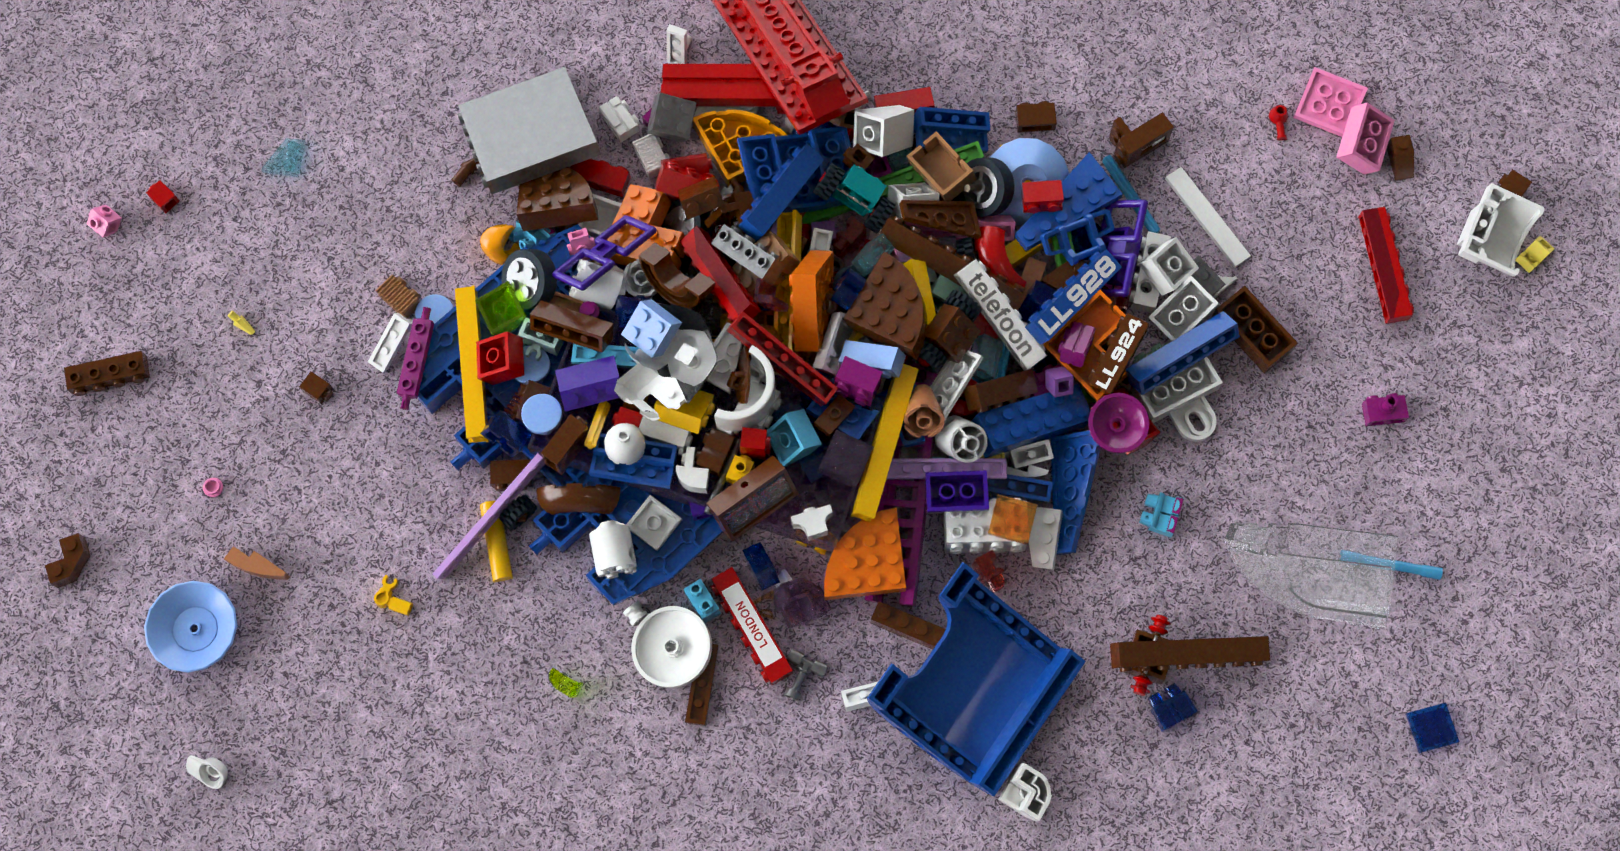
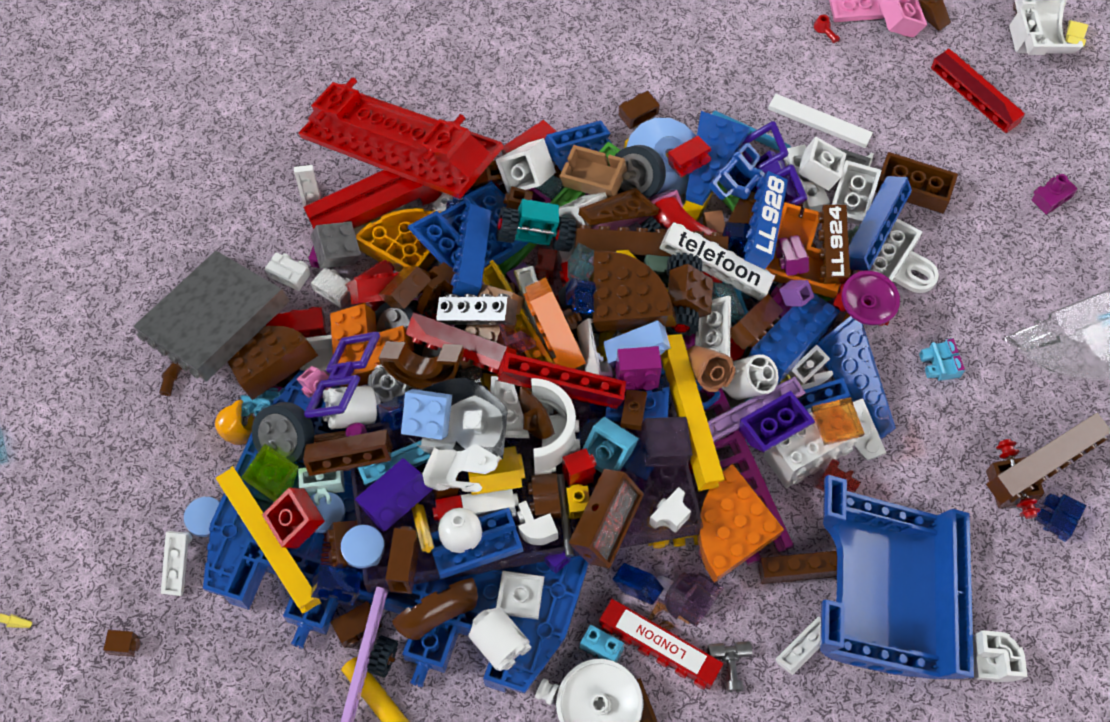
camera: 30 degrees left, 10 degrees down
(398, 296) = (161, 518): medium nougat brick -> none
(415, 358) = (208, 563): magenta plate -> none
(1141, 141) = (730, 91): reddish brown brick -> none

